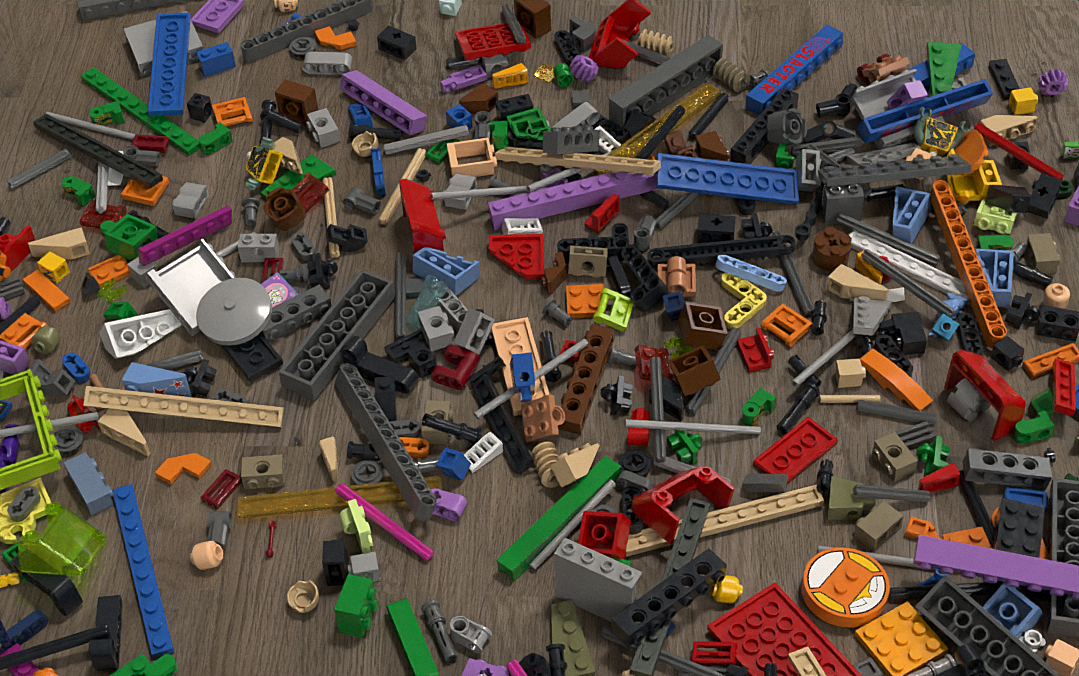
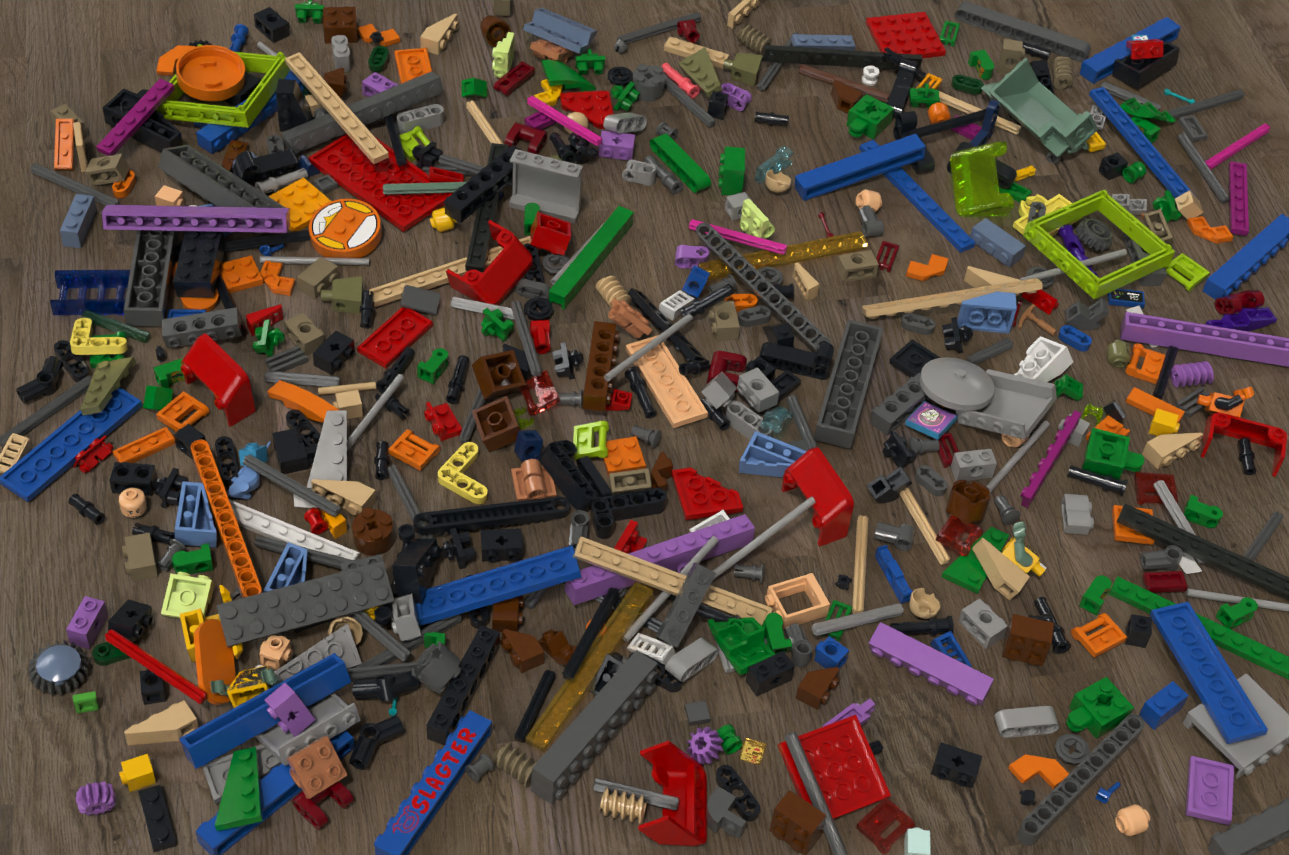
camera: 160 degrees right, 0 degrees up
(194, 595) = (859, 167): none -> blue brick
(268, 62) = (1098, 708): none -> green brick
(295, 626) = (775, 163): none -> clear light blue plate
(335, 562) = (763, 196): black hinge -> none
(458, 183) = (794, 558): light grey brick -> none
(467, 18) = (879, 820): none -> clear red plate
(516, 75) = (797, 724): light orange slope -> none
(522, 368) = (656, 324): blue torso -> none
(574, 464) = (588, 286): tan slope -> none
(692, 427) = (493, 326): light grey piece -> none
(741, 376) = (456, 384): none -> black pin
(742, 628) = (419, 188): none -> sand green axle
(750, 273) = (456, 498): light blue beam -> none
(794, 206) = (415, 568): none -> black wedge
(862, 431) = (333, 352): none -> black brick
(891, 493) = (310, 294): dark grey axle -> none
(1009, 198) = (167, 607): black slope -> none
(1028, 385) = (179, 408): none -> orange plate
(1064, 387) = (139, 401): red plate -> none

